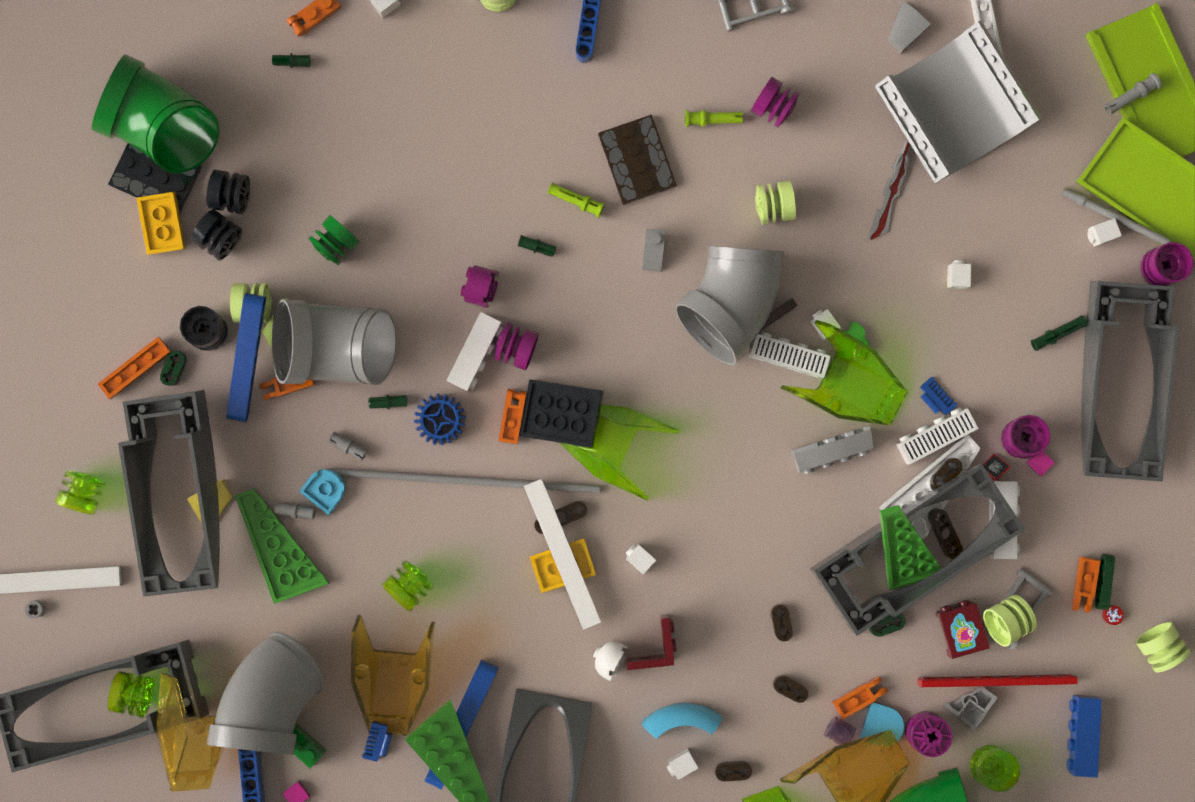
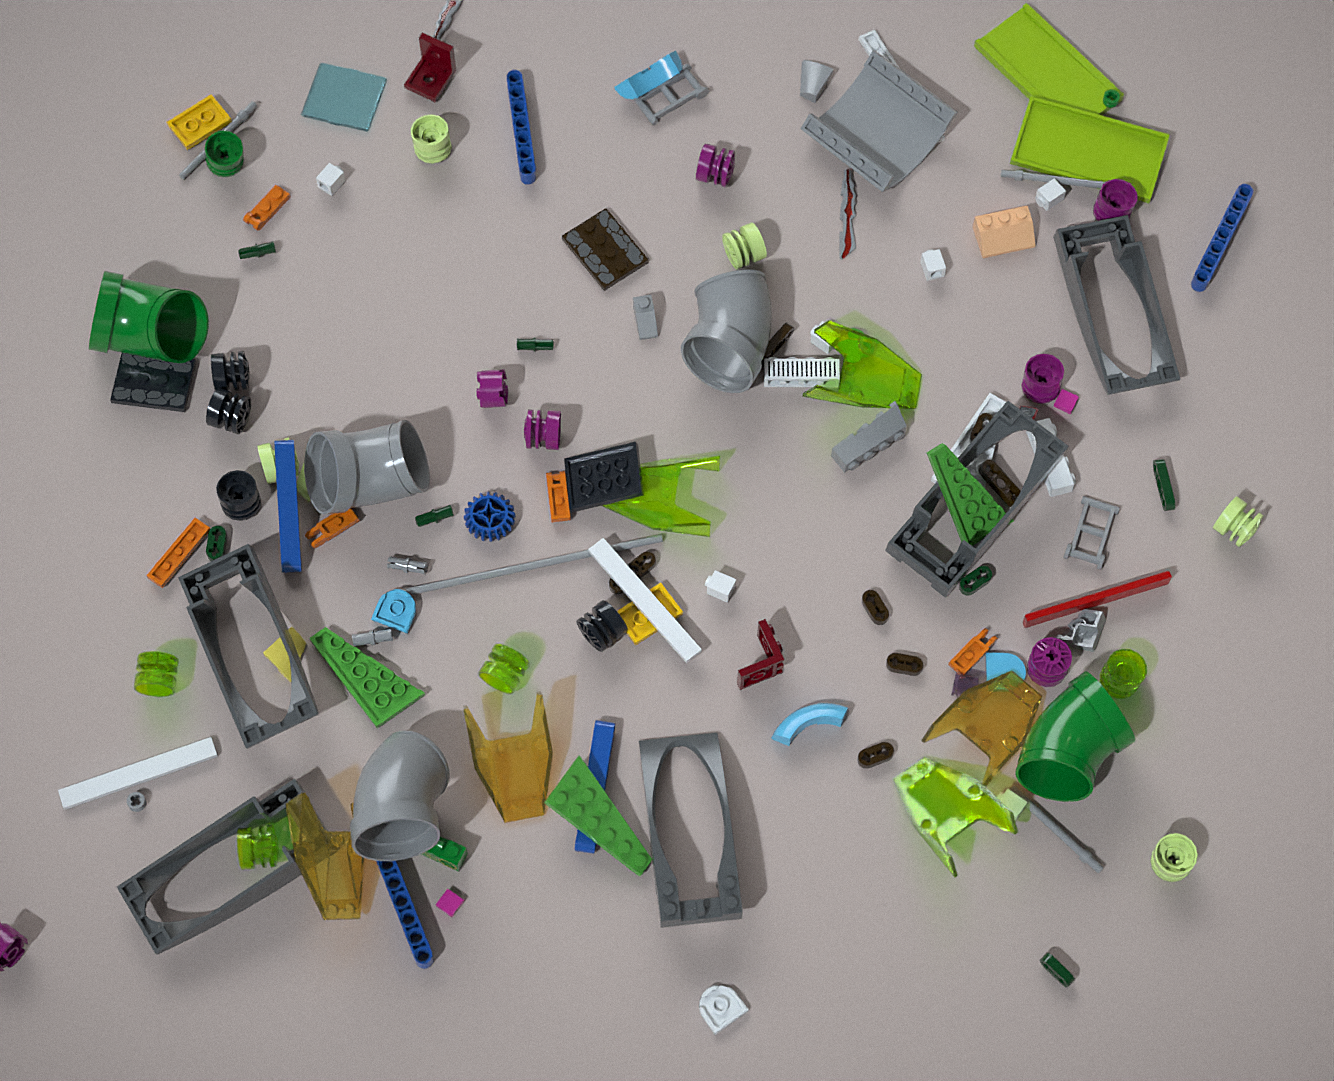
camera: 20 degrees left, 20 degrees down
(161, 223) = (171, 417): yellow plate -> none
(333, 240) = (342, 385): green wheel -> none
(382, 742) = (521, 827): blue piece -> none
(475, 351) = (504, 449): white brick -> none
(512, 570) = (602, 626): none -> black wheel
(585, 203) = (567, 296): lime pin -> none
(609, 659) = (721, 681): white cylinder -> none
(681, 764) = (823, 760): white brick -> none
(703, 118) = (655, 198): lime pin -> none
(932, 399) = (948, 376): blue piece -> none
(936, 436) = (961, 403): white brick -> none
(962, 629) = (1048, 562): dark red panel -> none
(1009, 620) = (1086, 534): yellowish green wheel -> none
(1043, 260) = (1004, 231): none -> light nougat slope
(1051, 337) = (1027, 300): dark green pin -> none
(1084, 736) = (1197, 625): blue brick -> none
(1085, 583) = (1147, 491): orange hinge -> none
(1113, 615) = (1183, 513): red tile -> none
(1140, 90) = (1037, 72): light grey pin -> none

